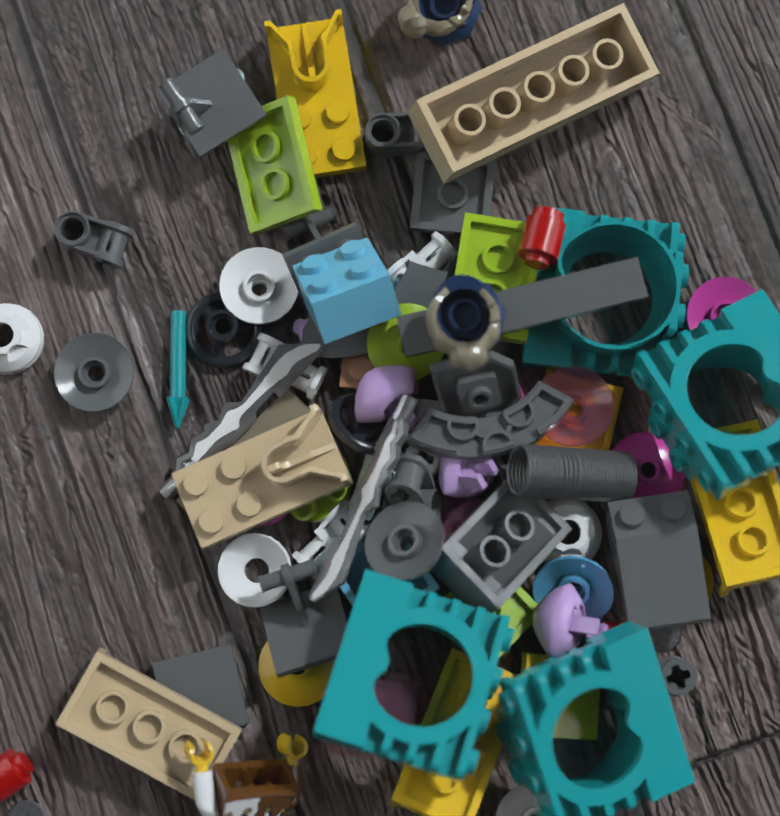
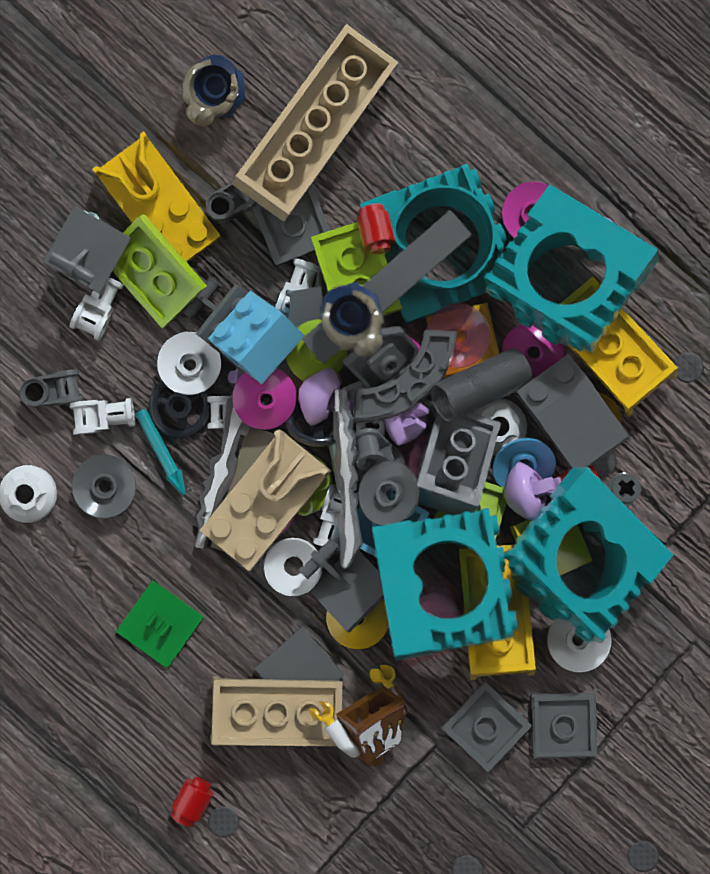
camera: 30 degrees left, 5 degrees up
(74, 558) = (159, 624): none -> green piece
(128, 292) = (99, 415): none -> white connector
(189, 176) = (96, 308): none -> white connector
(316, 387) = (247, 400): none -> dark pink dish

